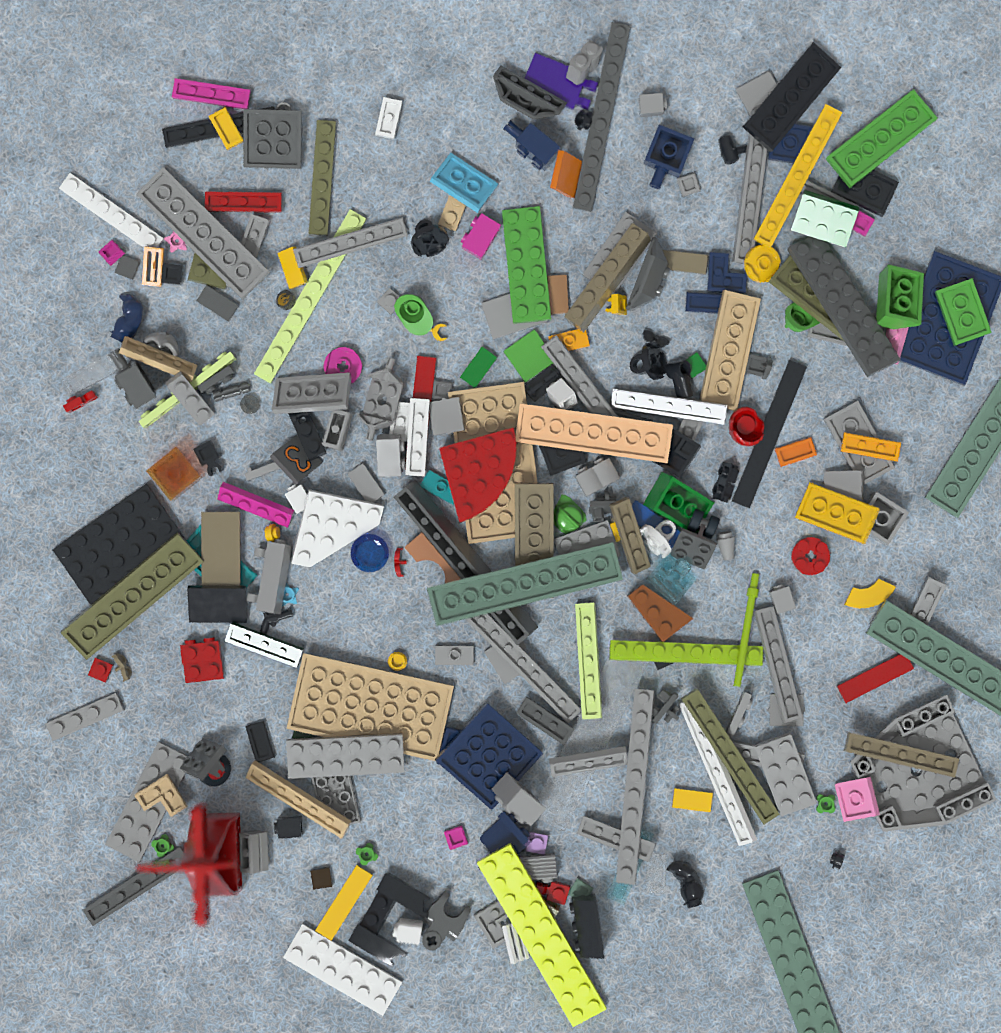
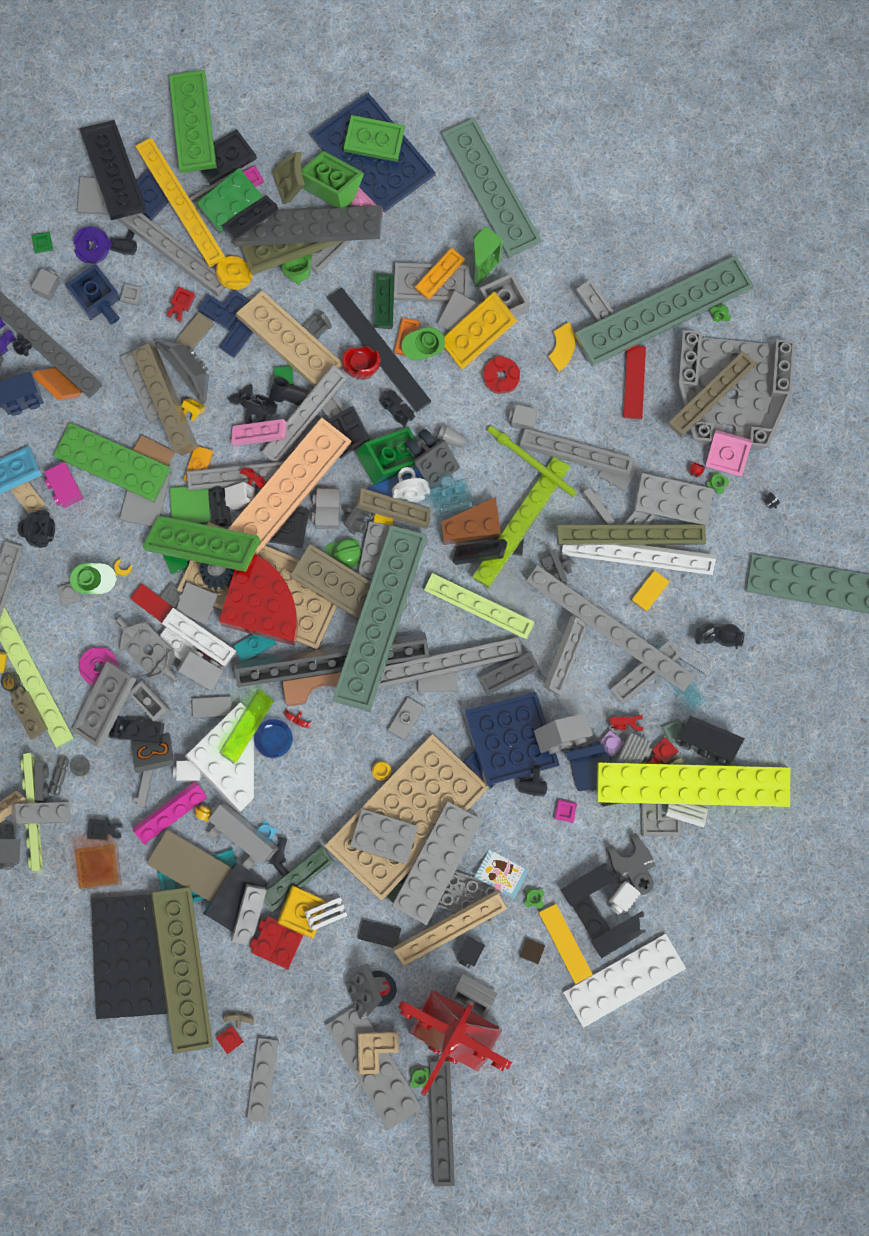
camera: 60 degrees left, 10 degrees down
(209, 624) = (248, 914): none -> light grey plate
(238, 667) = (293, 911): none -> yellow tile
(265, 690) = (340, 908): none -> white tile
(268, 332) = (28, 713): none -> dark tan hinge
(340, 698) = (384, 836): none -> light grey plate
(365, 525) = (246, 727): none -> clear neon green tile
(370, 814) = (501, 873): none -> sticker
(461, 799) = (533, 786): none -> black piece
(483, 418) = (215, 576): none -> black wheel
(498, 390) = (202, 543): none -> bright green plate
(558, 841) = (620, 723): none -> red plate
(586, 393) = (259, 480): none -> red piece
(628, 376) = (258, 432): none -> bright pink plate
(635, 633) = (480, 552): none -> black plate
(689, 76) = (42, 242): none -> green tile
(708, 234) = (181, 301): none -> red plate
(719, 129) = (82, 245): none -> dark purple plate
(796, 471) = (423, 343): none -> bright green piece
(816, 411) = (383, 300): none -> dark green plate
(819, 248) = (250, 217): none -> black plate
(827, 777) = (696, 468): none -> red hinge
(880, 258) = (289, 177): none -> olive plate
(911, 477) = (486, 253): none -> bright green slope
(985, 717) = (724, 310): none -> bright green plate

